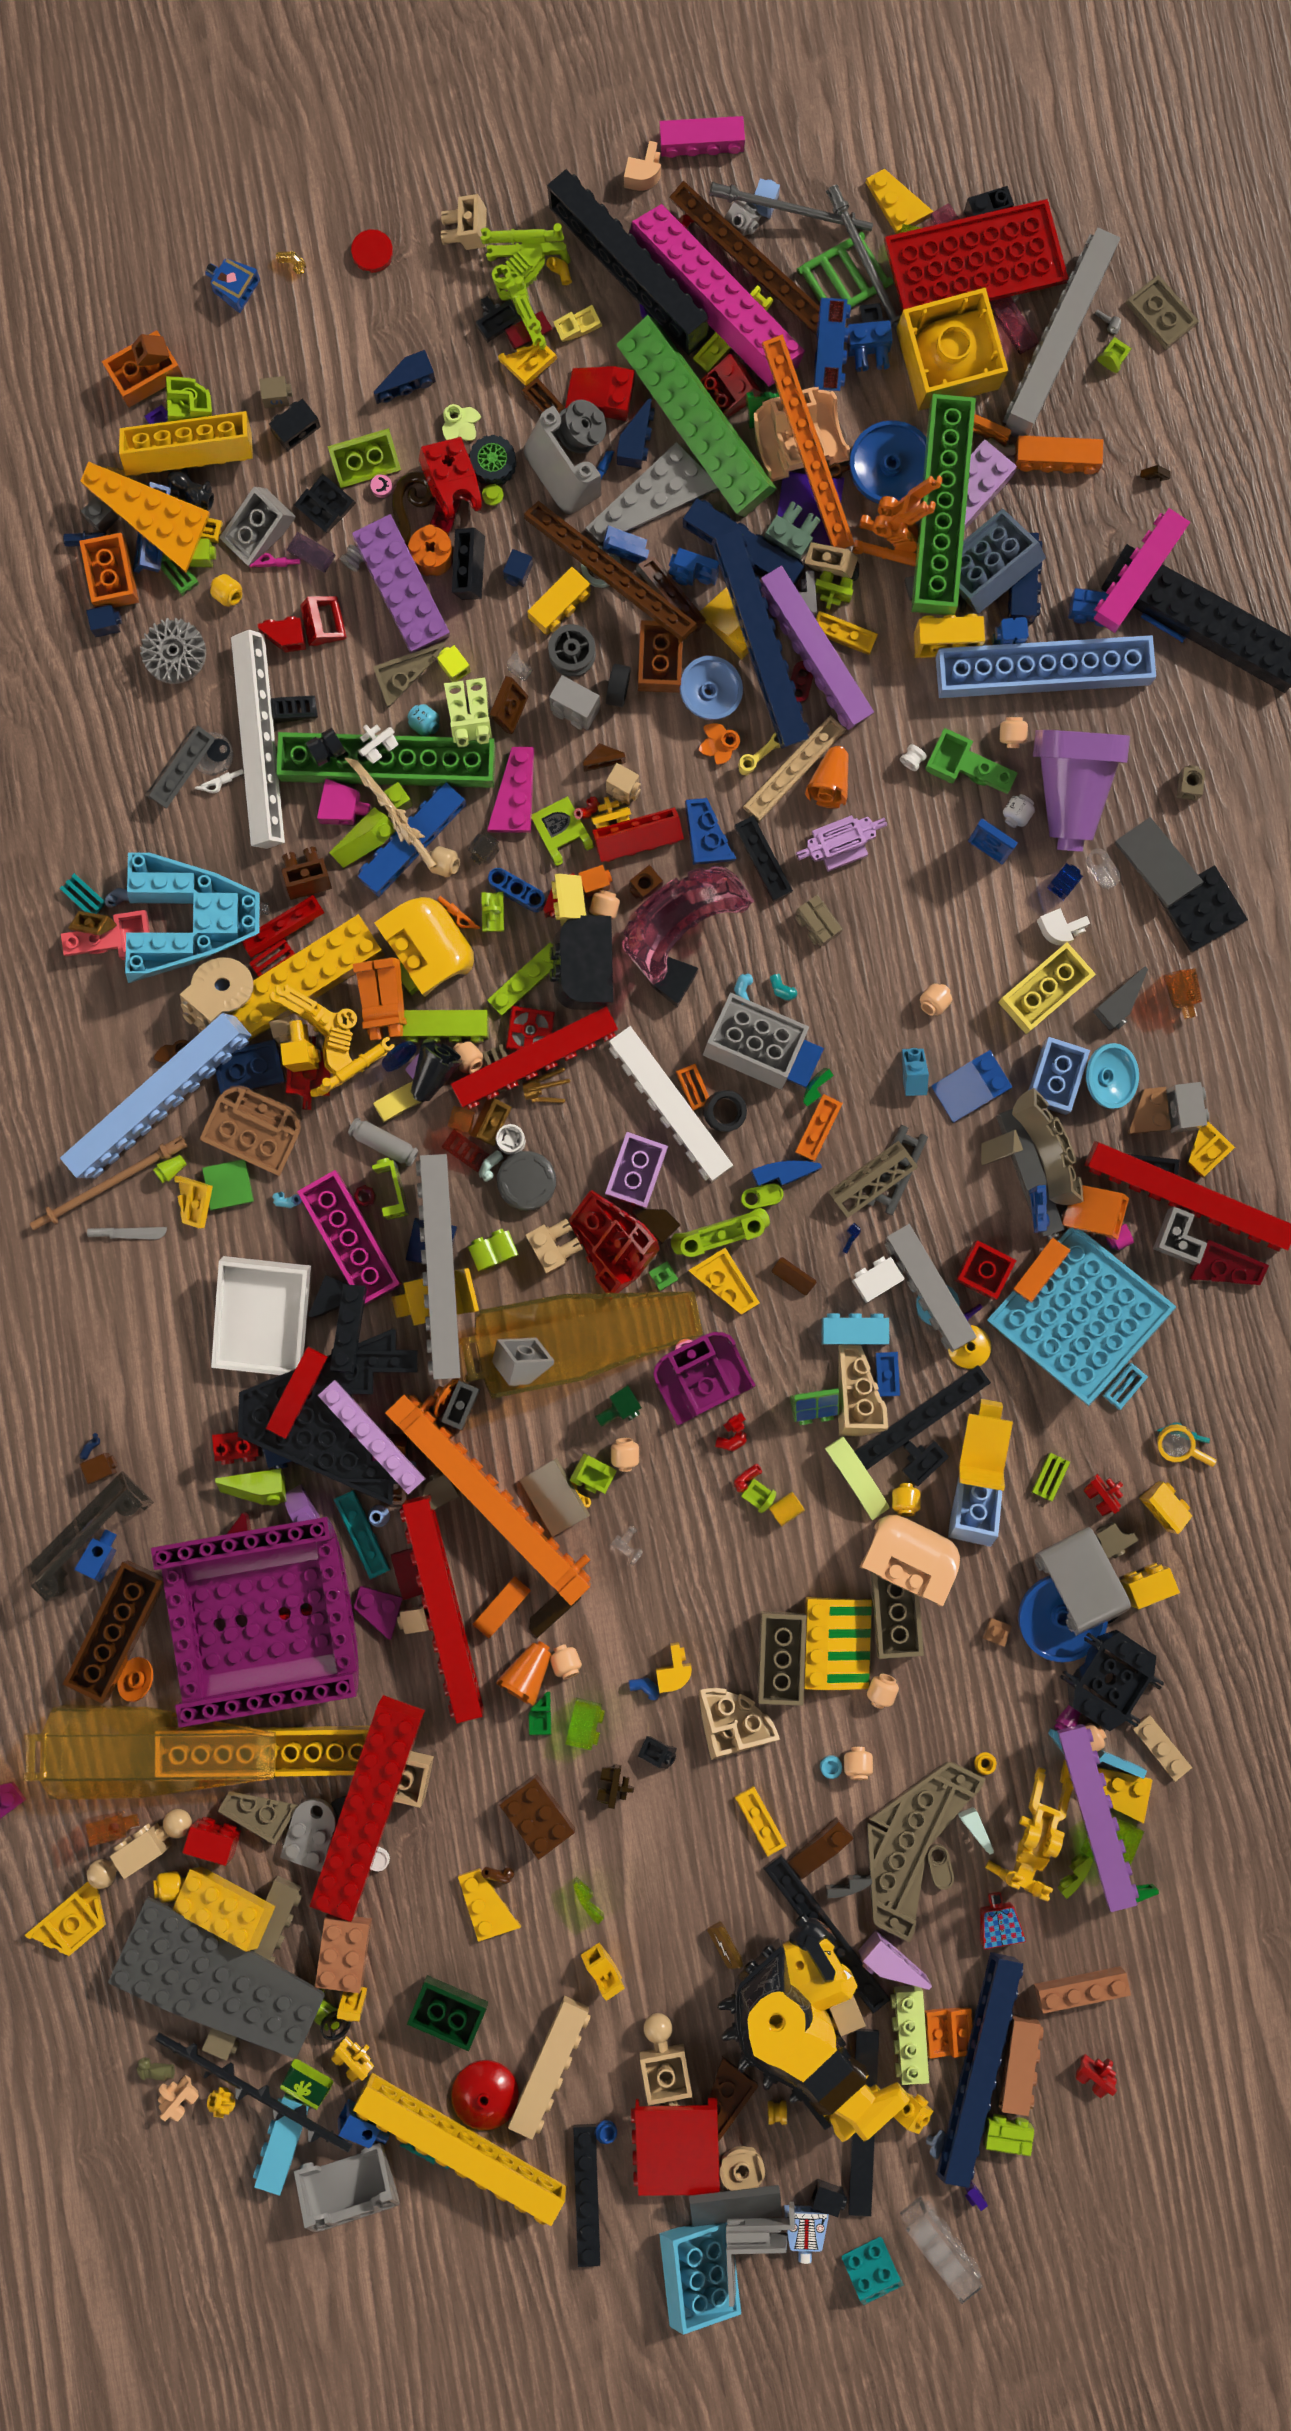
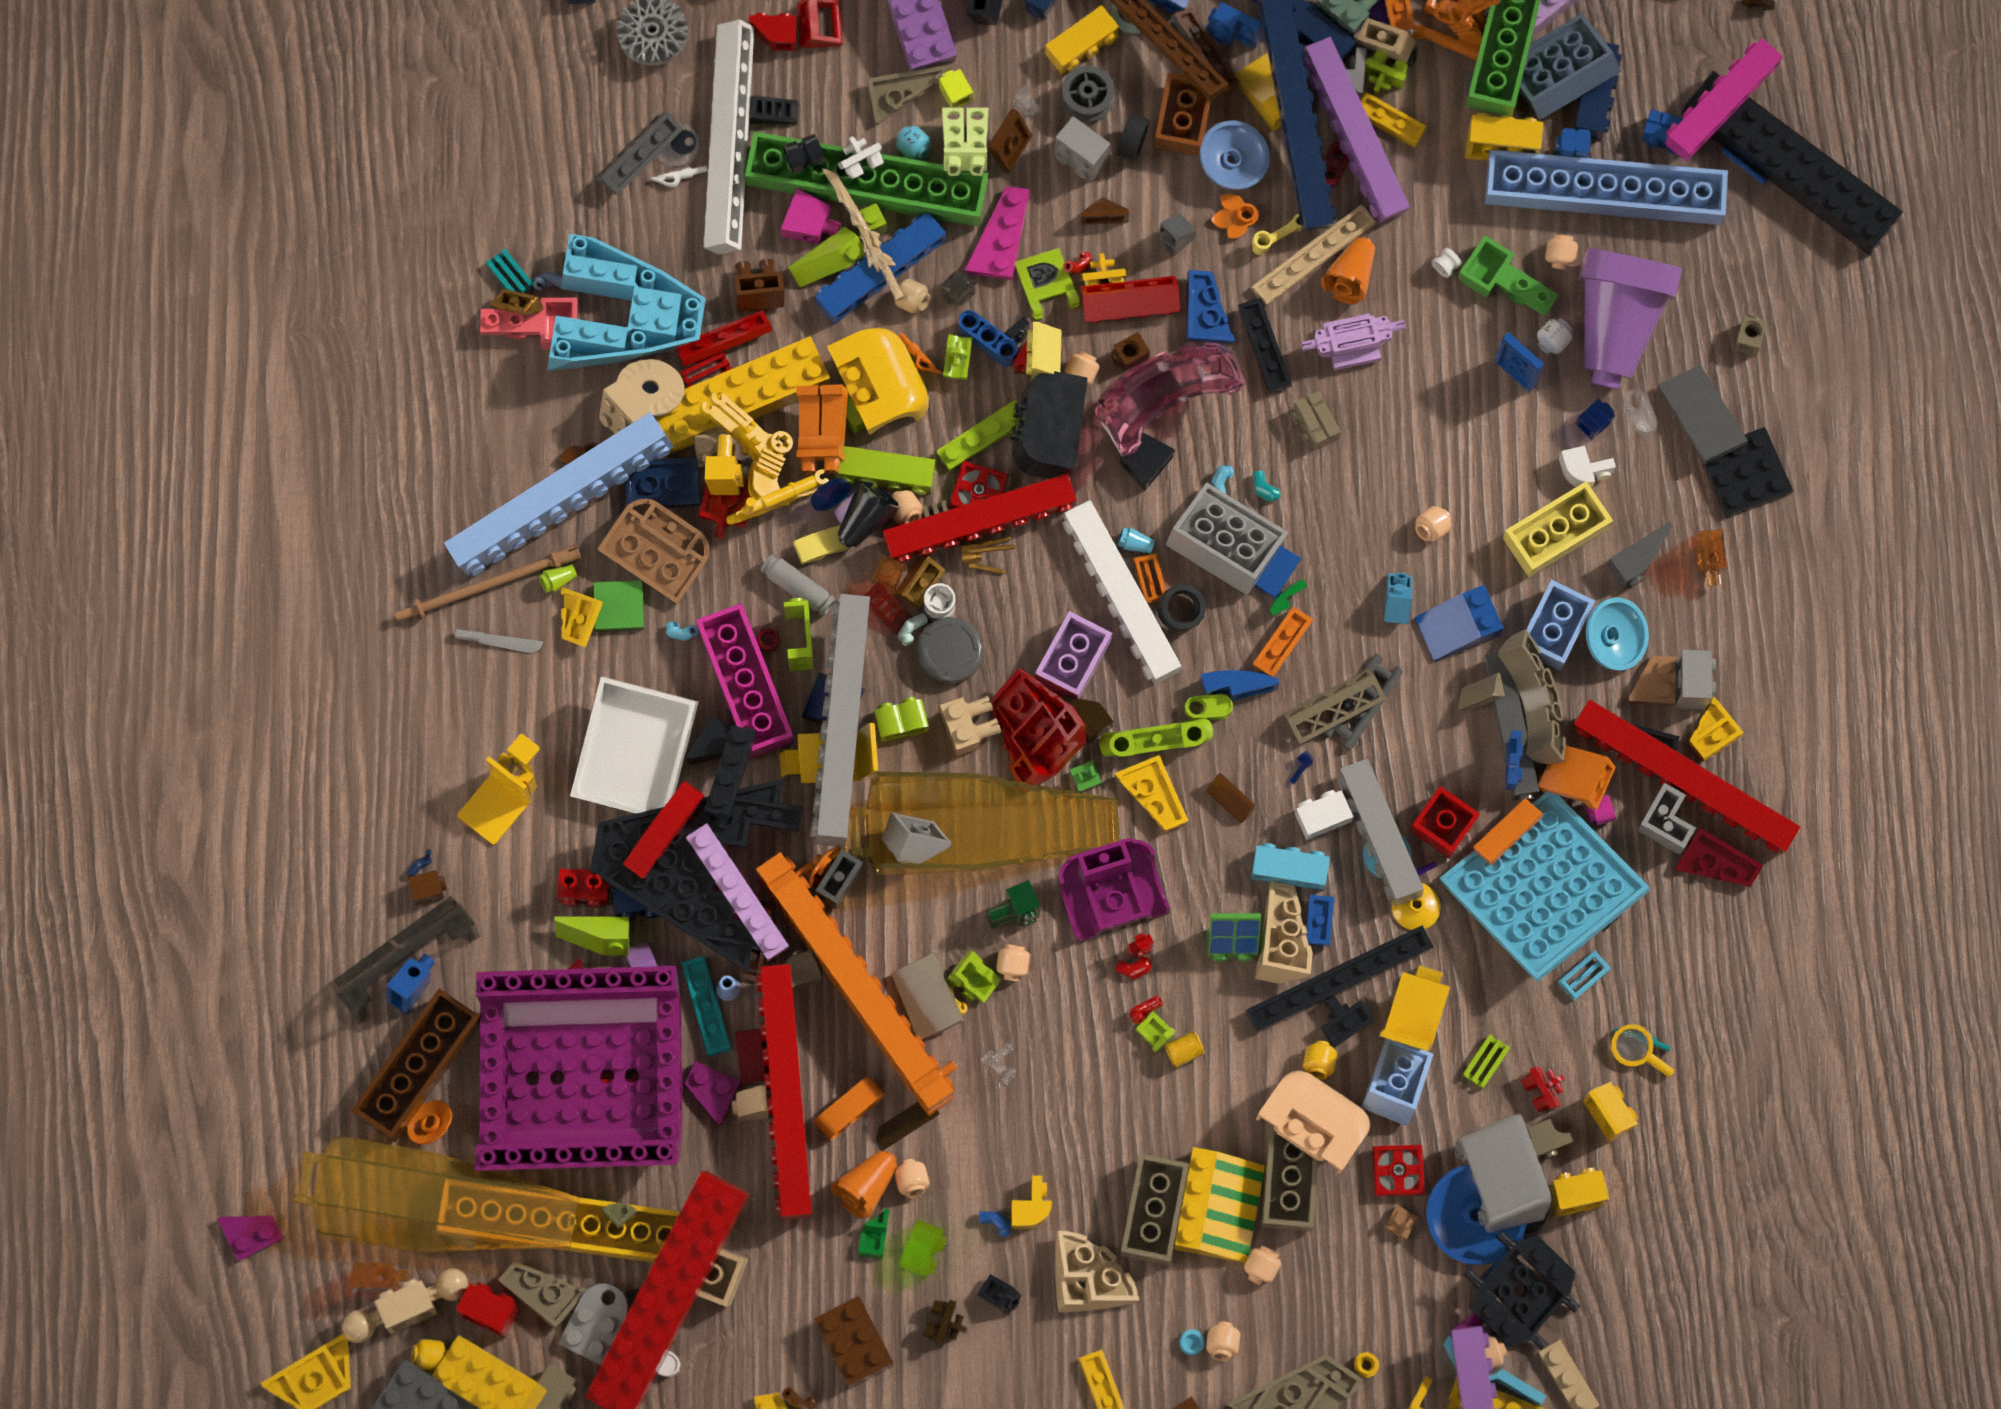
camera: 10 degrees right, 10 degrees down
(151, 1374) = (502, 794): none -> yellow piece
(313, 1740) = (619, 1213): none -> olive tile
(543, 880) = (1019, 330): none -> black plate
(595, 880) = (1075, 340): orange brick -> none
(623, 784) = (1122, 243): tan brick -> none
(669, 768) = (1175, 234): none -> dark grey slope
(674, 1055) = (1135, 541): none -> medium azure cone
(857, 1478) = (1269, 1027): yellowish green slope -> none
(988, 1587) = (1398, 1170): none -> red piece

